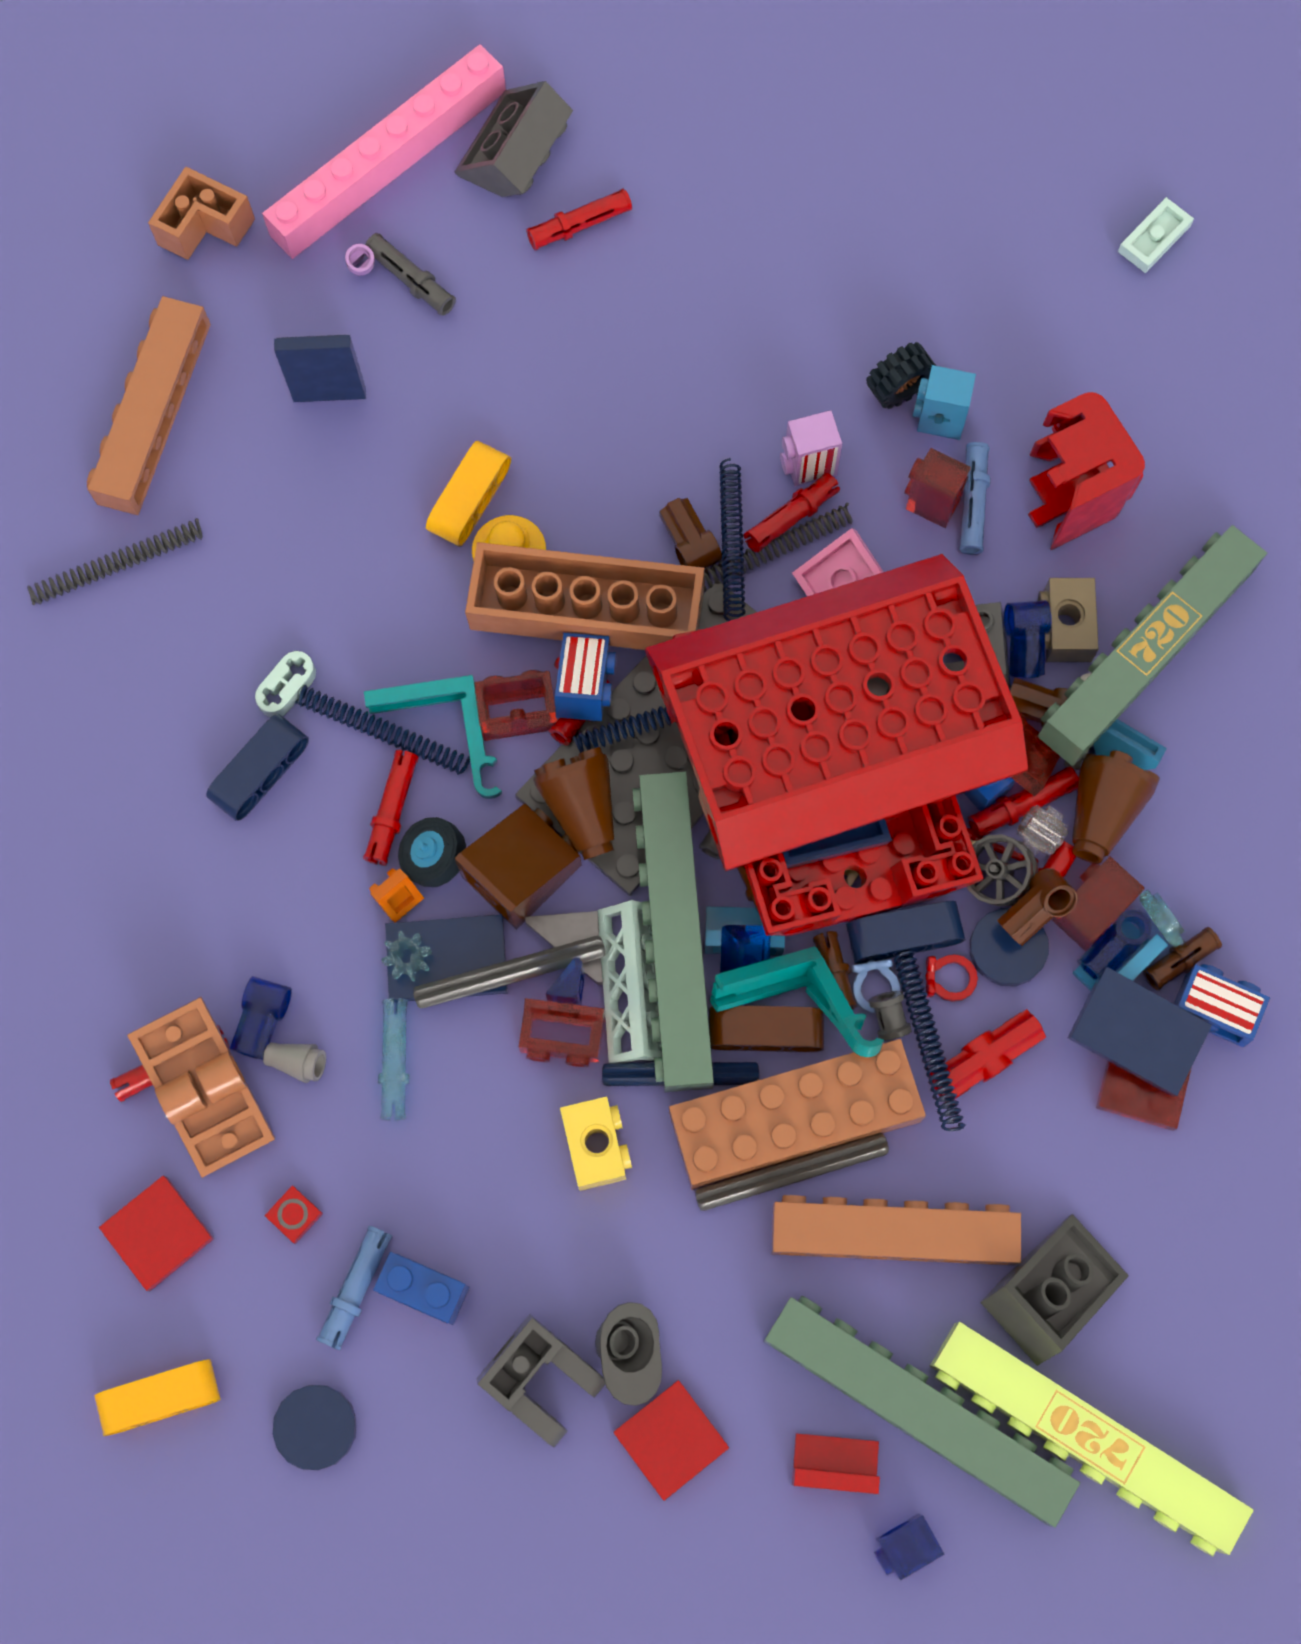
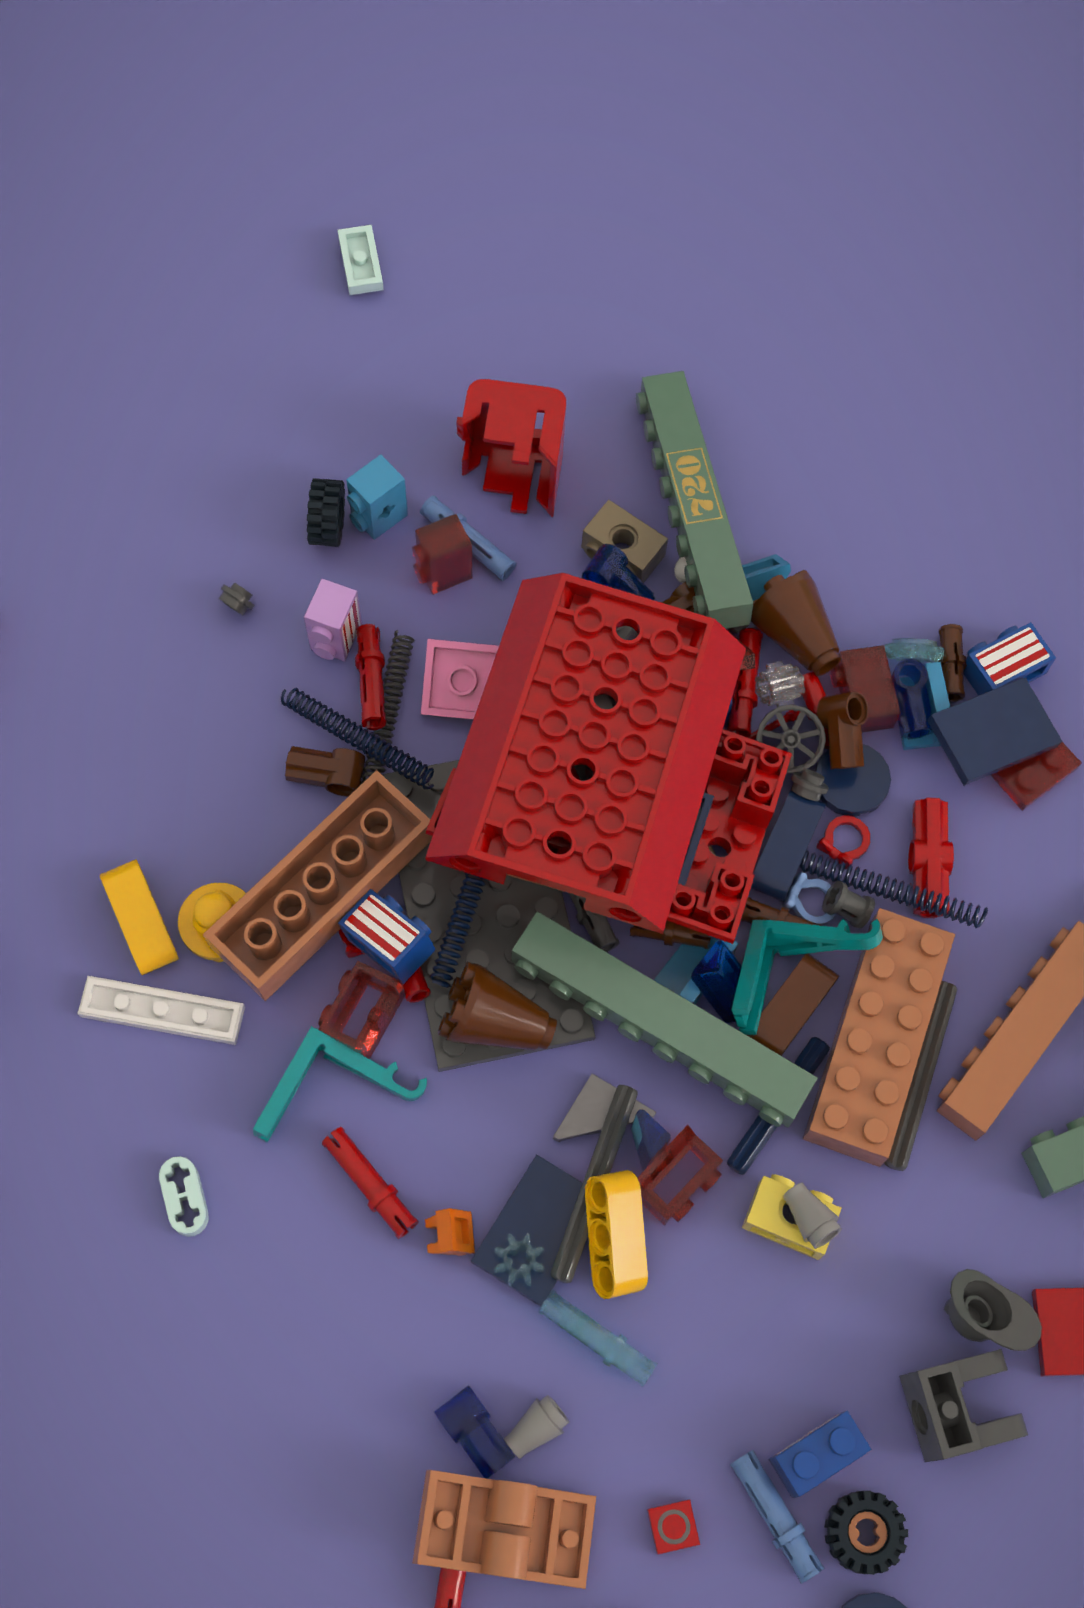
camera: 60 degrees left, 5 degrees down
(257, 767) = (243, 1274): dark blue beam -> none
(350, 712) = (290, 1143): dark blue piece -> none
(375, 1349) = (888, 1529): none -> black bush
(412, 564) = (161, 1010): none -> white tile
(429, 851) = (438, 1174): black wheel -> none
(478, 1014) = (616, 1234): none -> yellow beam
(519, 863) = (507, 1107): reddish brown slope -> none
(597, 1153) = (812, 1216): none -> light grey cone
(632, 981) = (674, 1077): light aqua fence -> none
(778, 367) = (236, 598): none -> dark grey plate
(969, 913) = (809, 784): none -> dark grey plate

